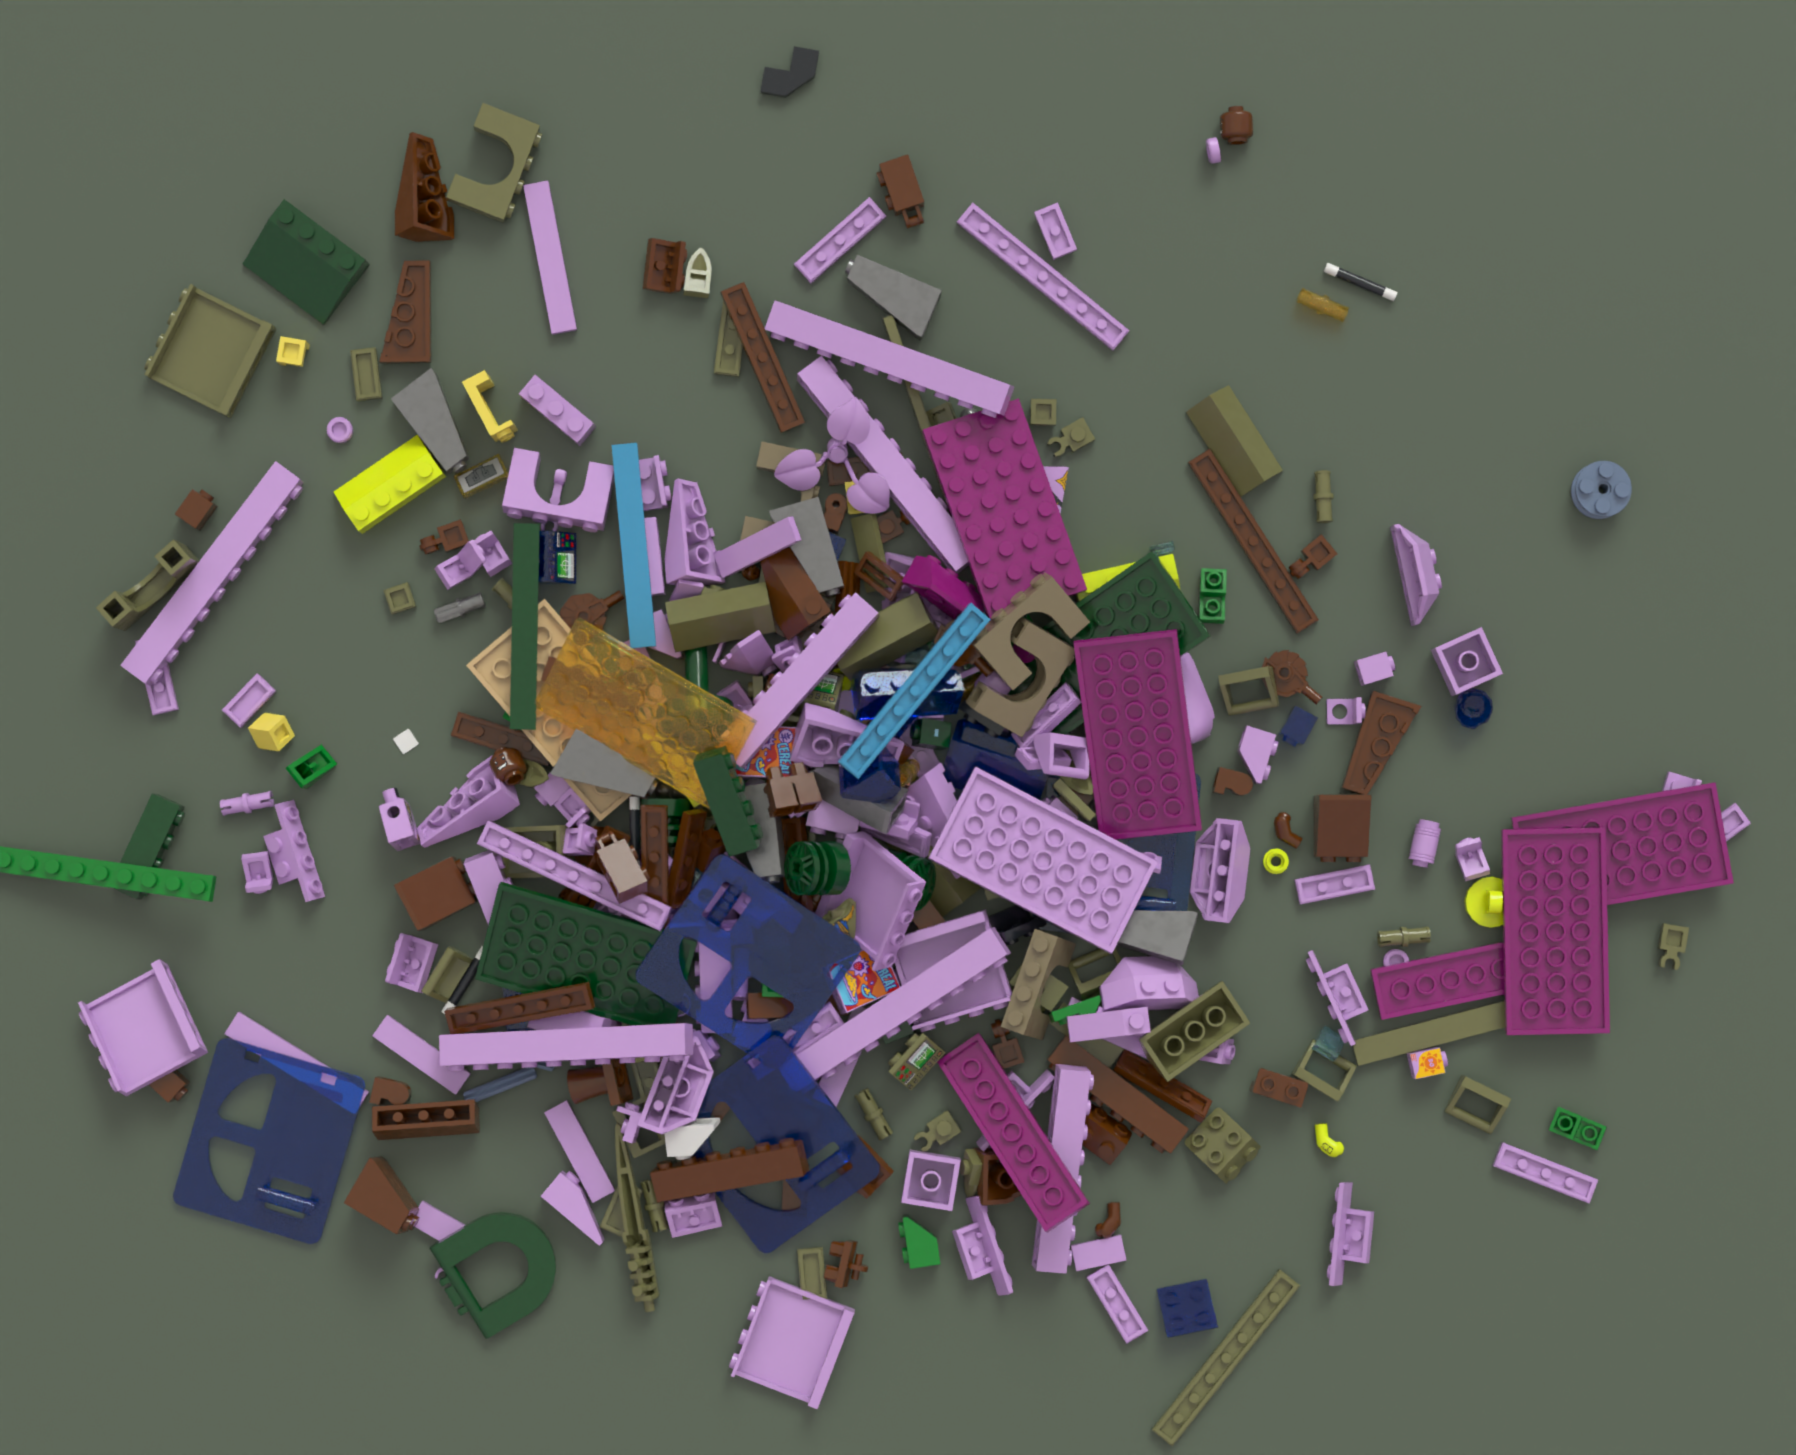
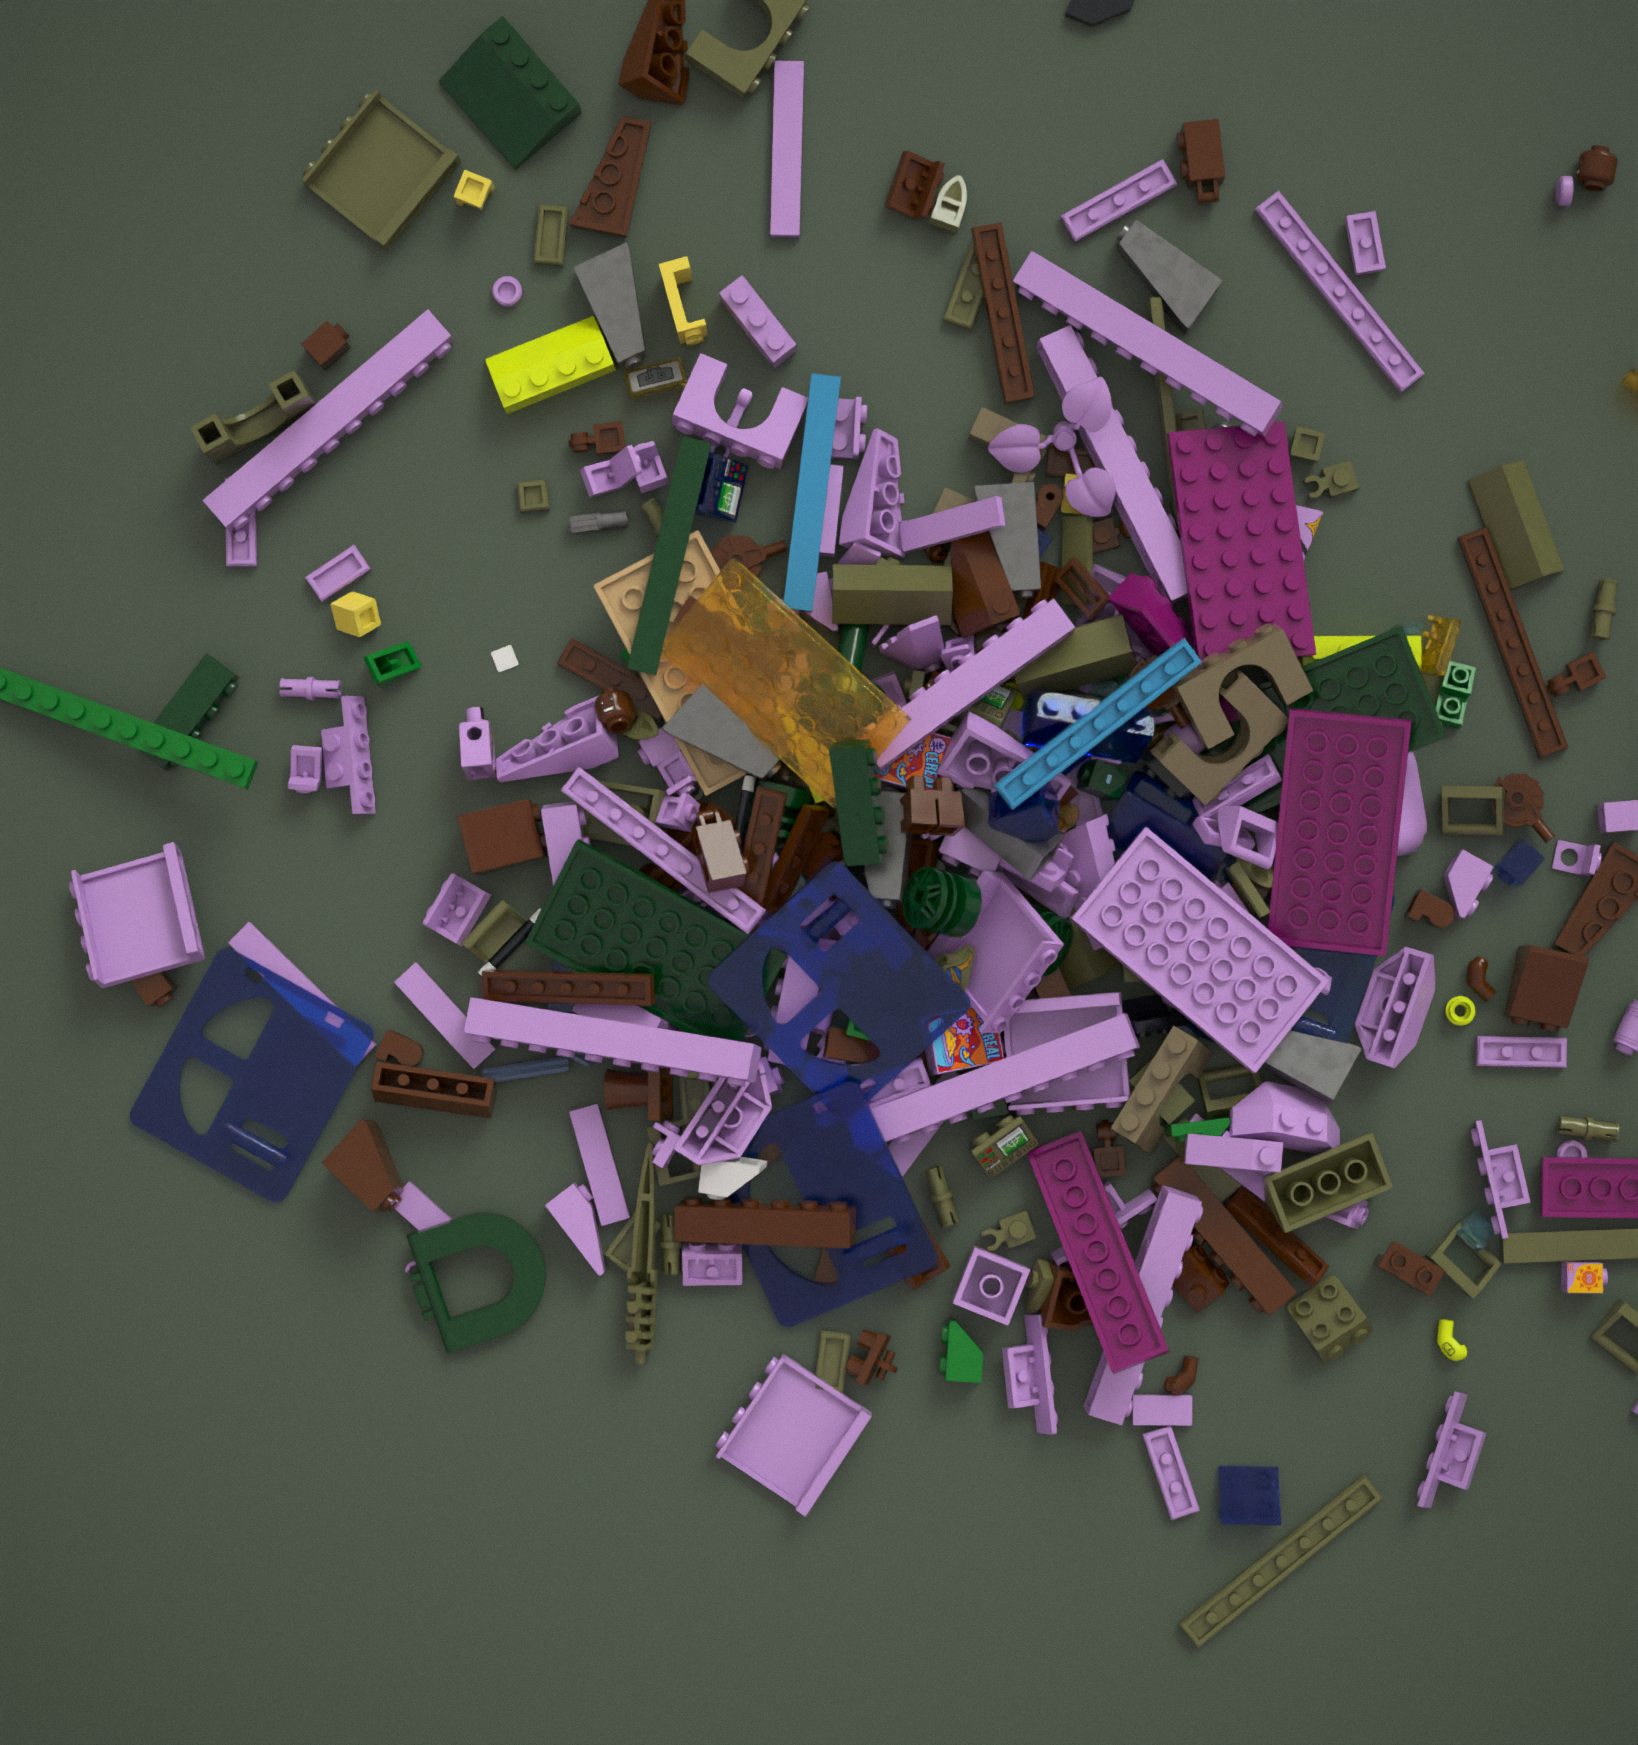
camera: 20 degrees right, 0 degrees up
(1191, 557) = (1440, 645): none -> clear yellow plate

